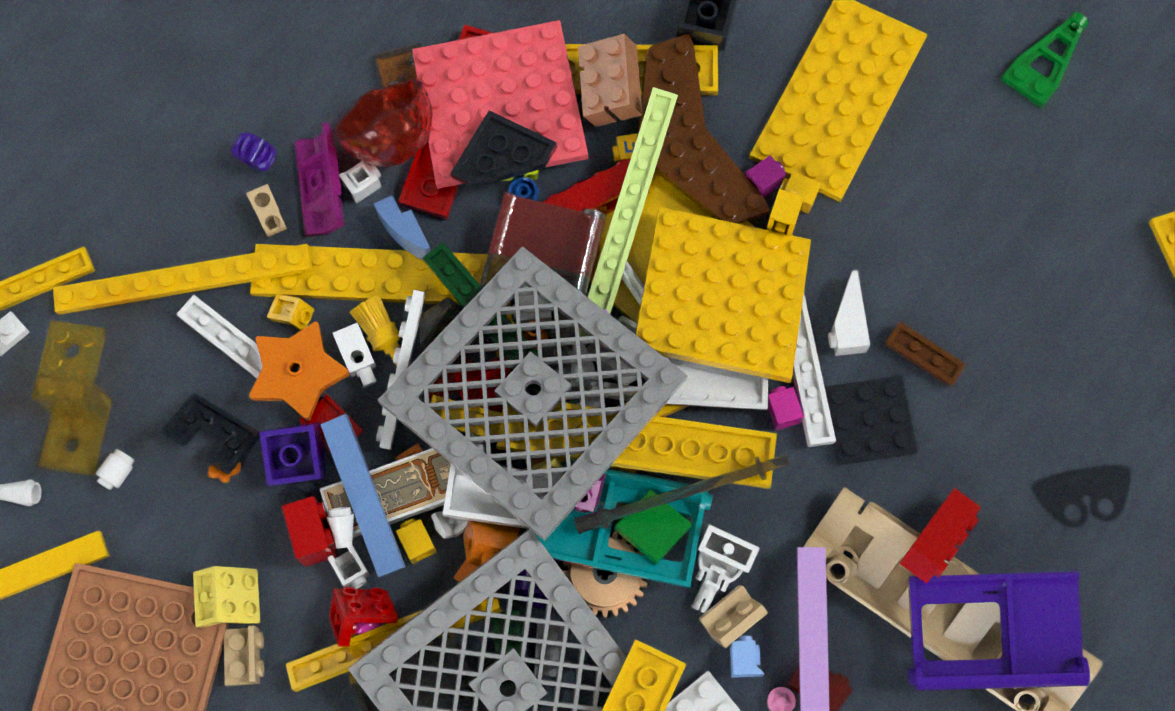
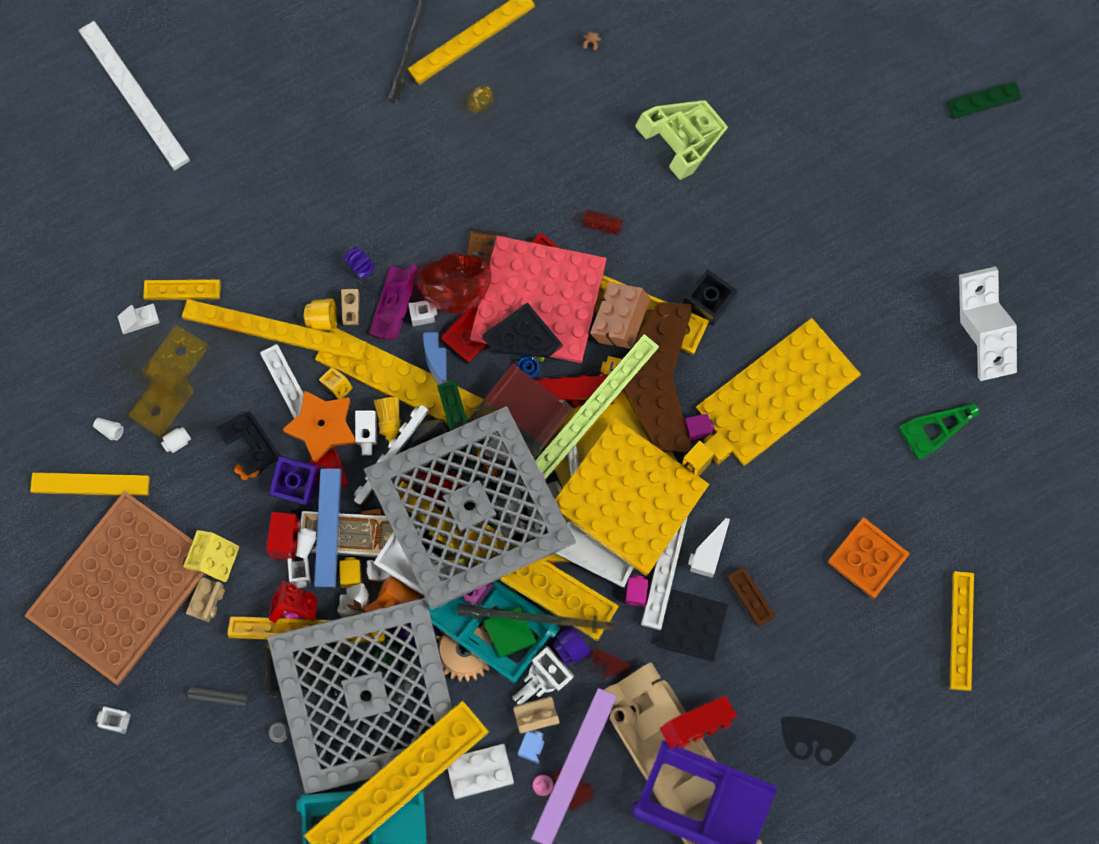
camera: 20 degrees right, 0 degrees up
(234, 235) = (321, 315): none -> yellow piece
(436, 574) = (354, 601): none -> white hair
(736, 510) = (571, 646): none -> dark purple piece
(799, 509) = (615, 665): none -> clear red slope
(1042, 247) = (868, 558): none -> orange plate

